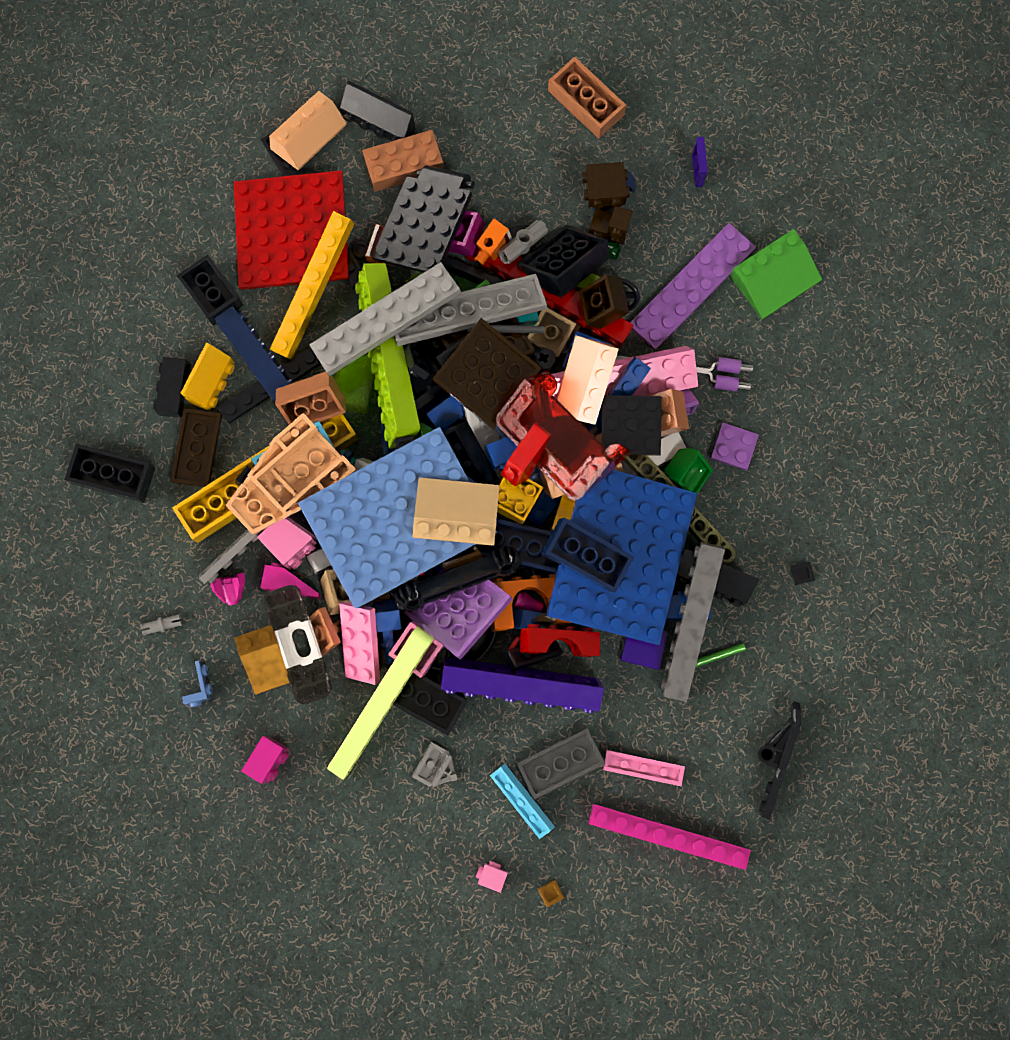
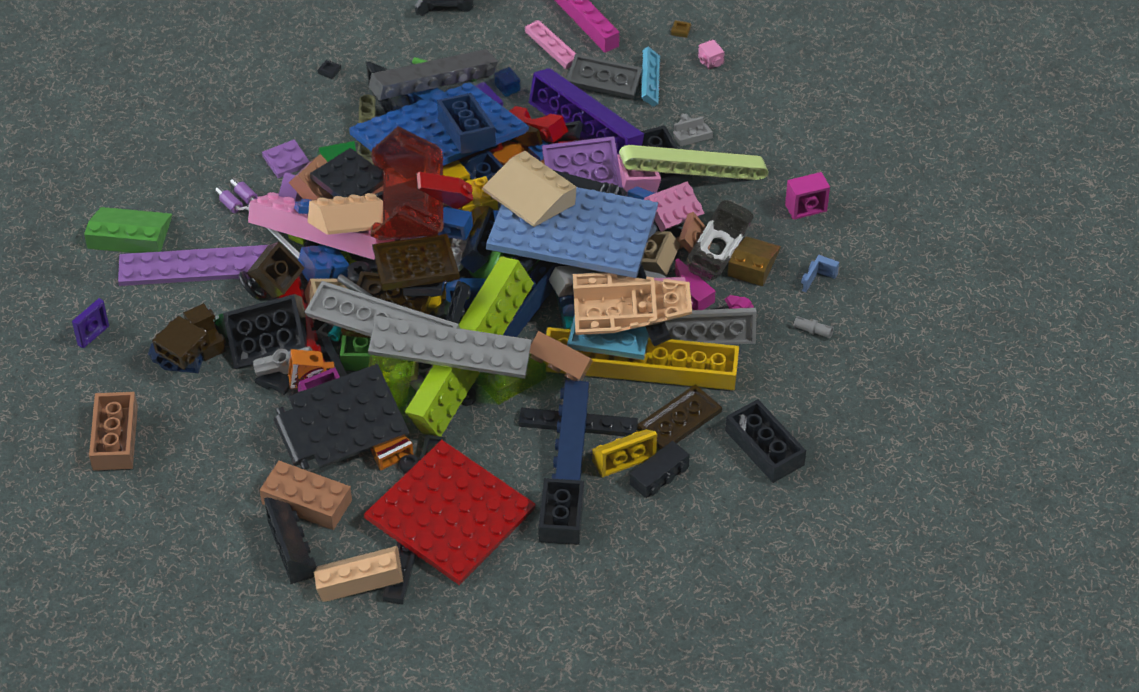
camera: 140 degrees left, 30 degrees down
(312, 285) = (476, 444): yellow brick -> none
(638, 685) = (507, 81): none -> clear blue brick

